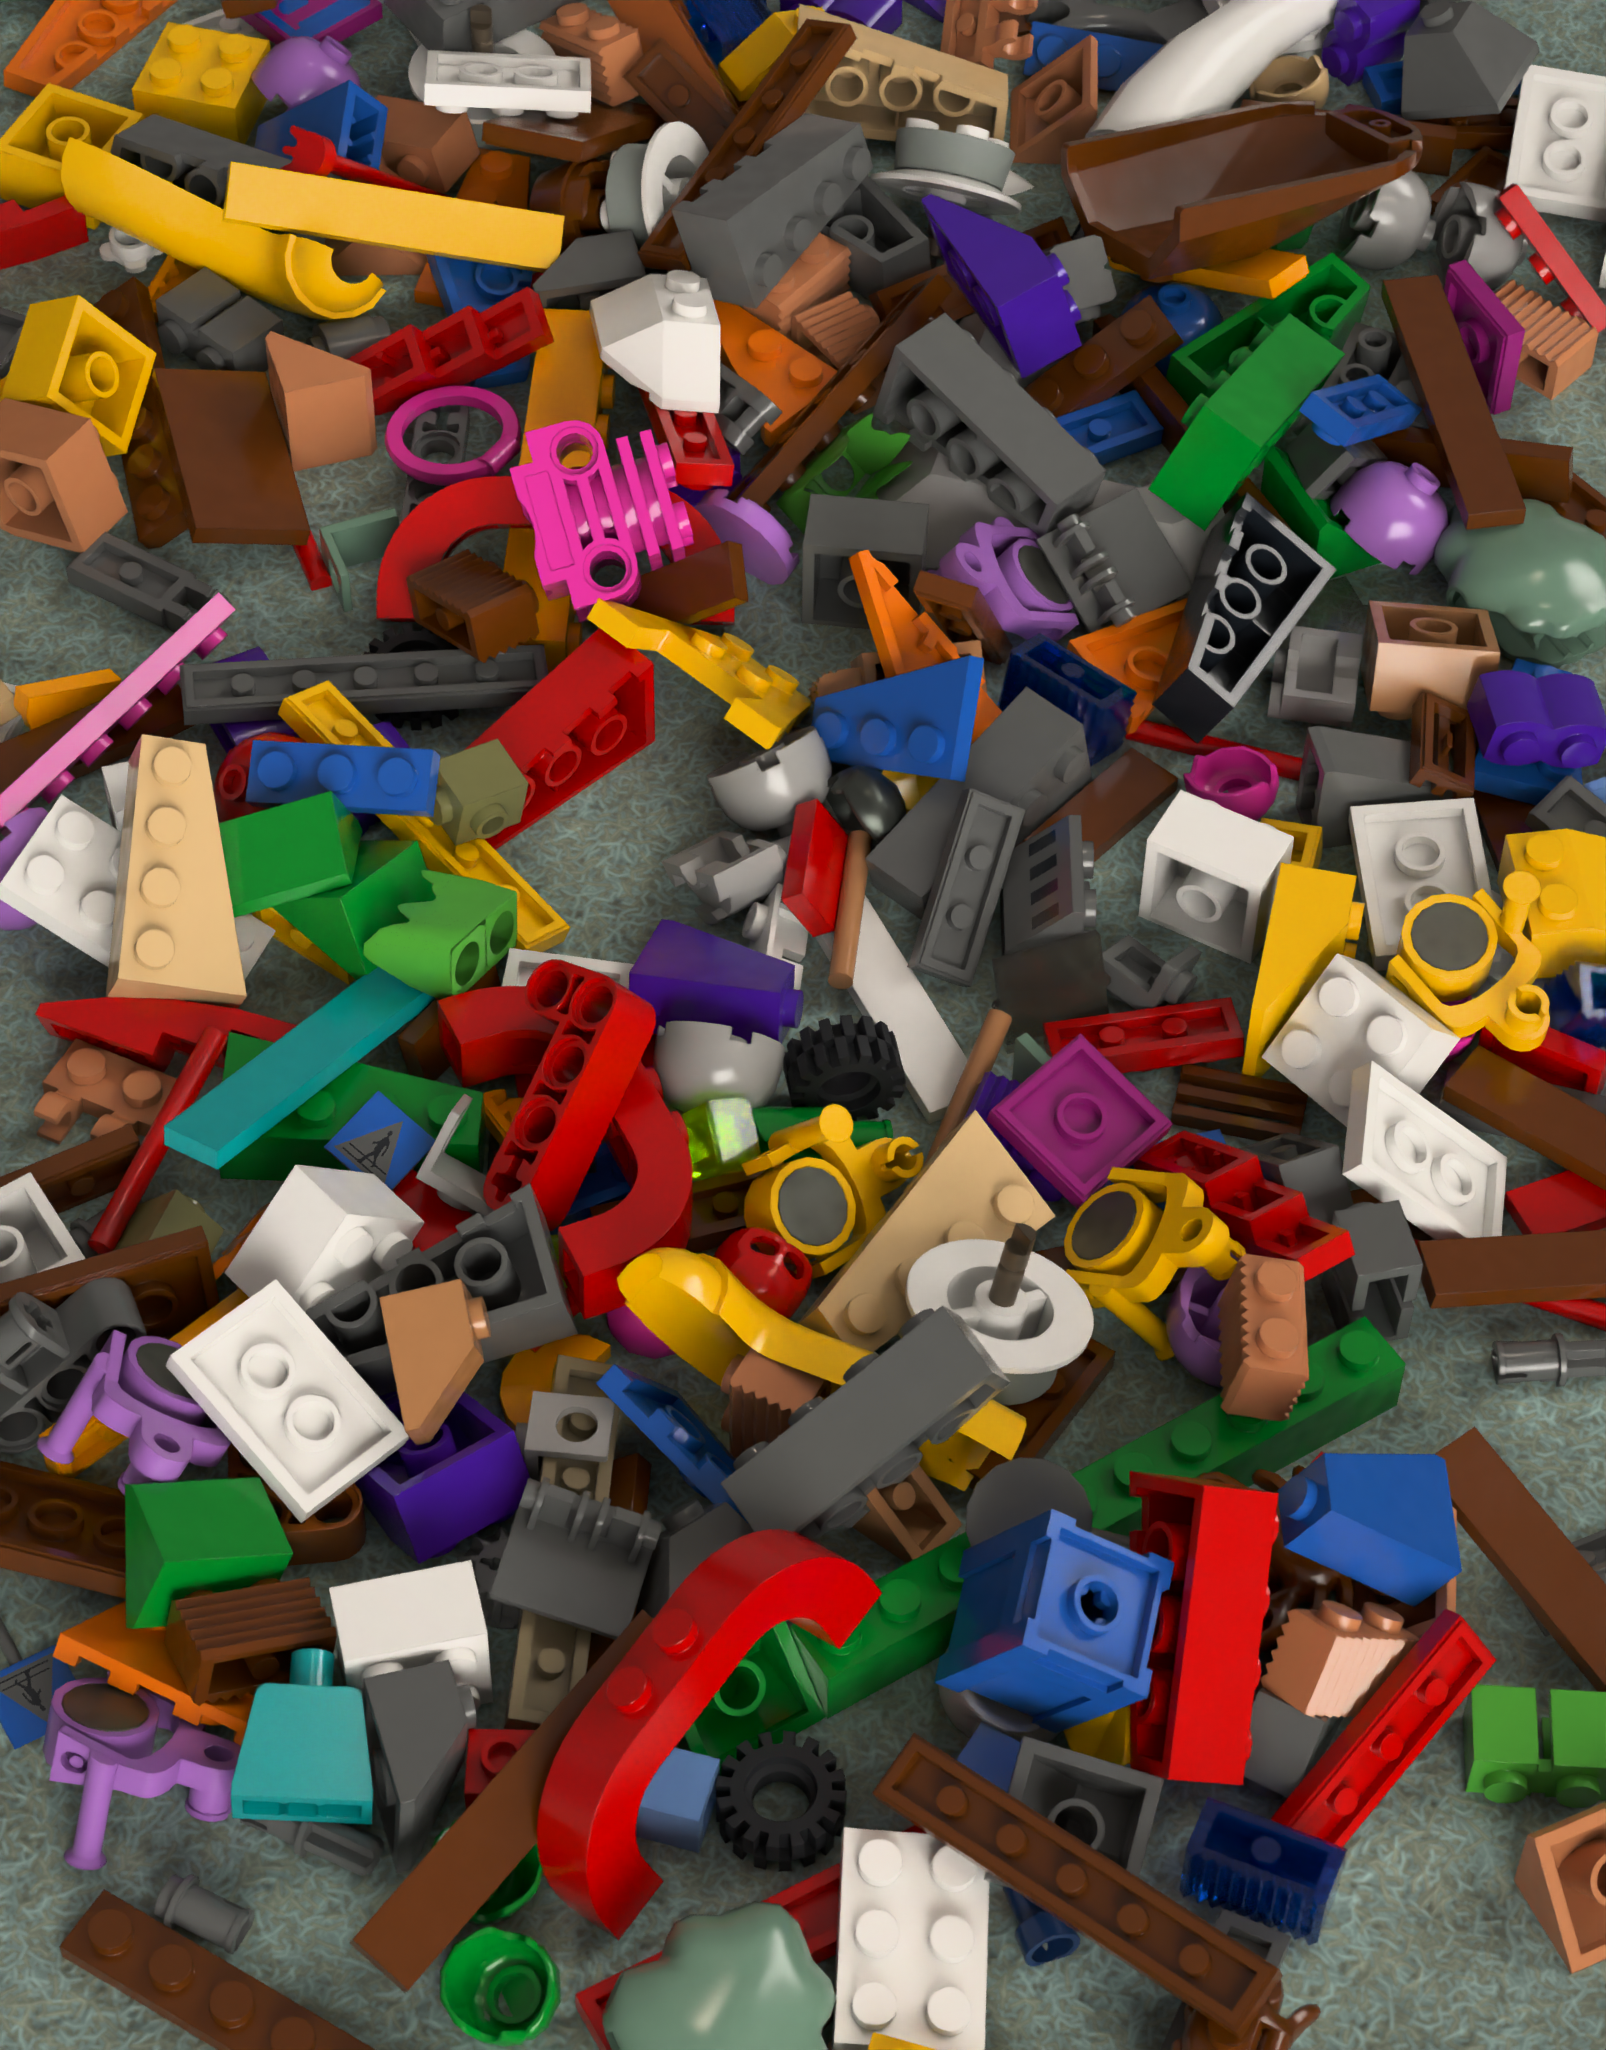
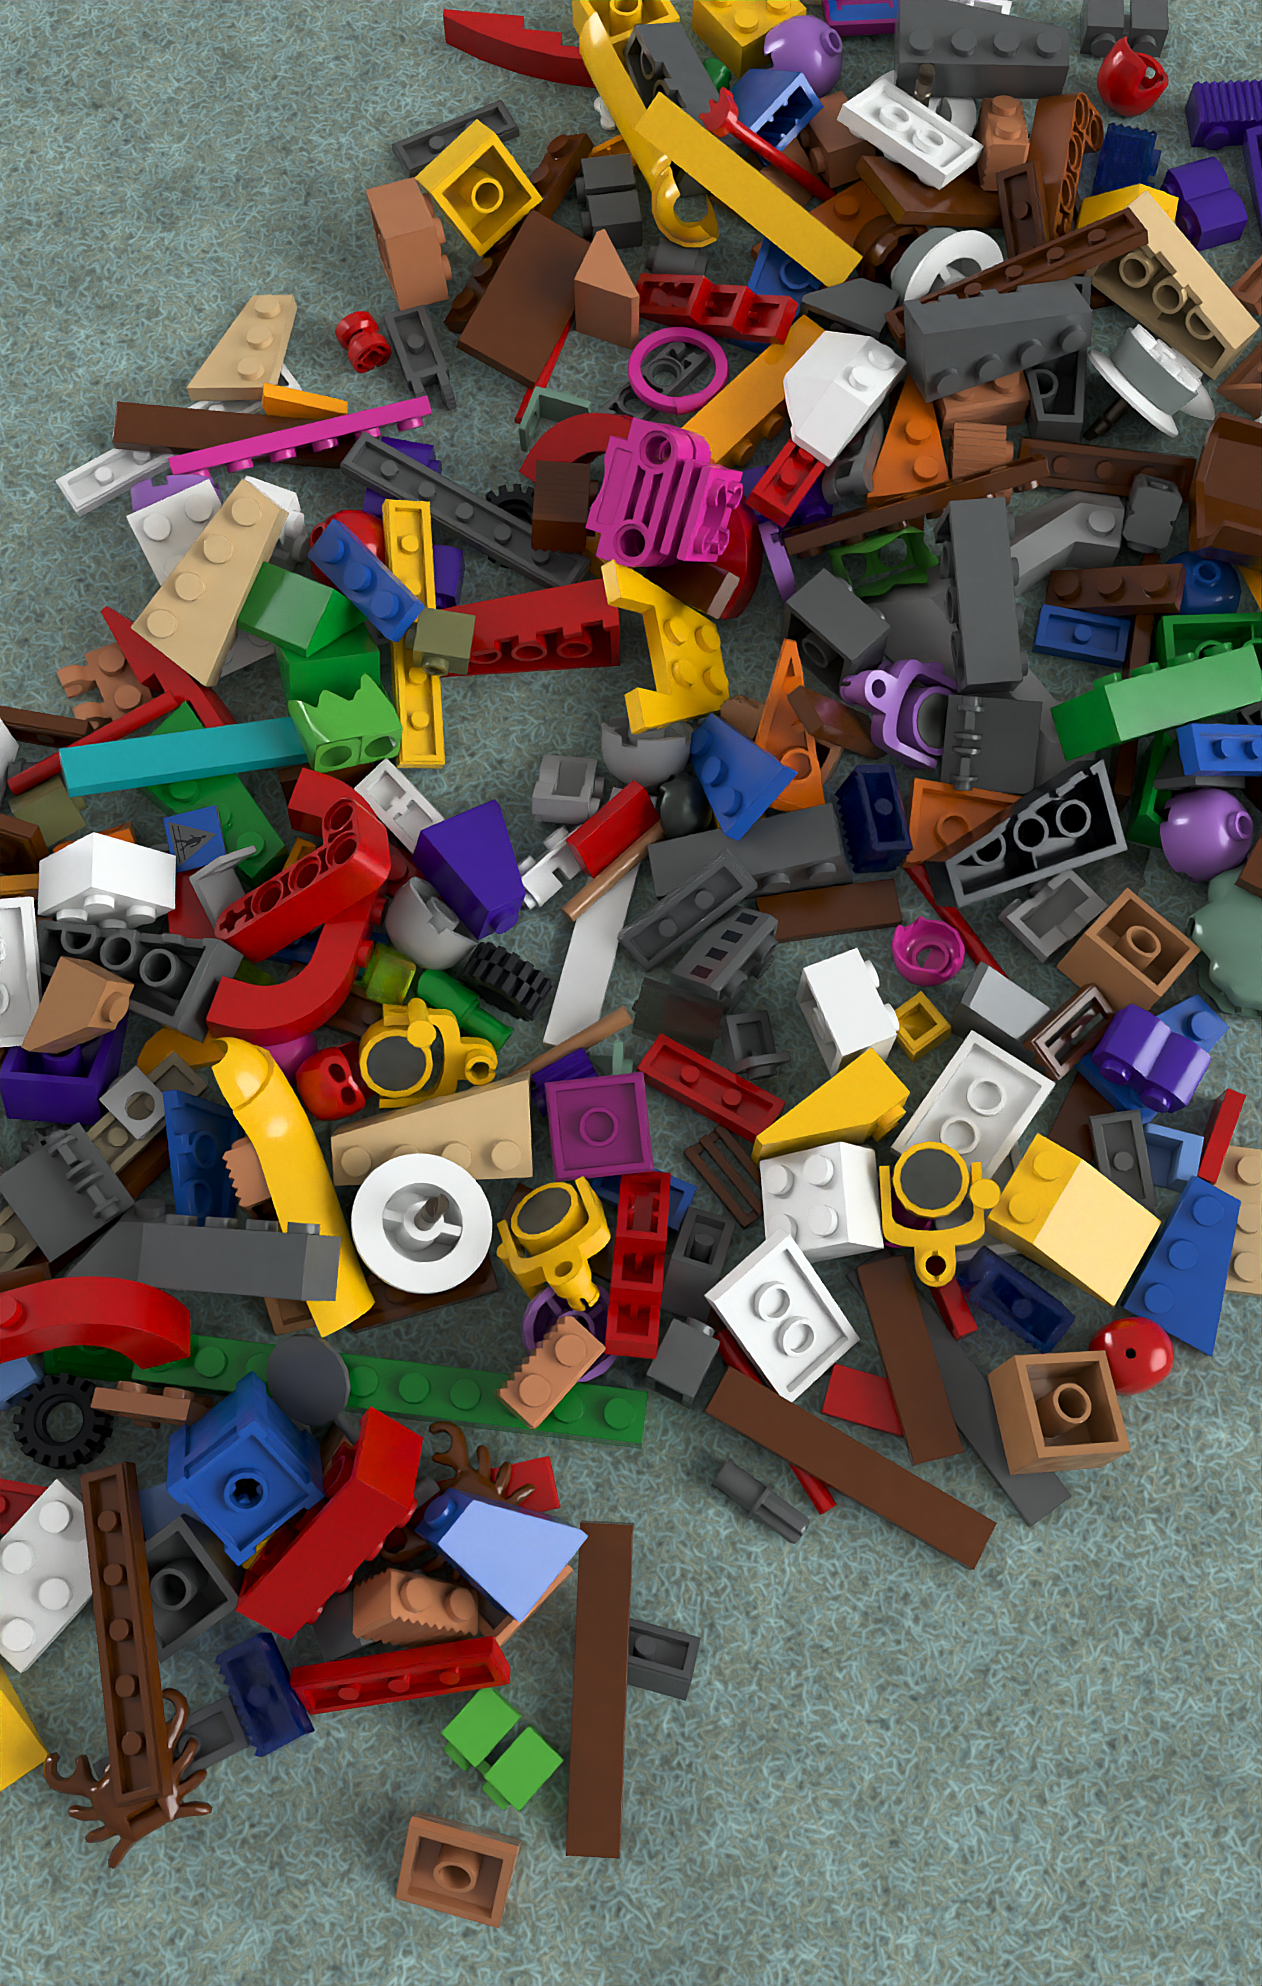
camera: 40 degrees right, 20 degrees up
(67, 605) = (360, 337): none -> red wheel
(858, 1697) = (151, 1406): none -> nougat plate
(1007, 284) = (1078, 503): dark purple slope -> none

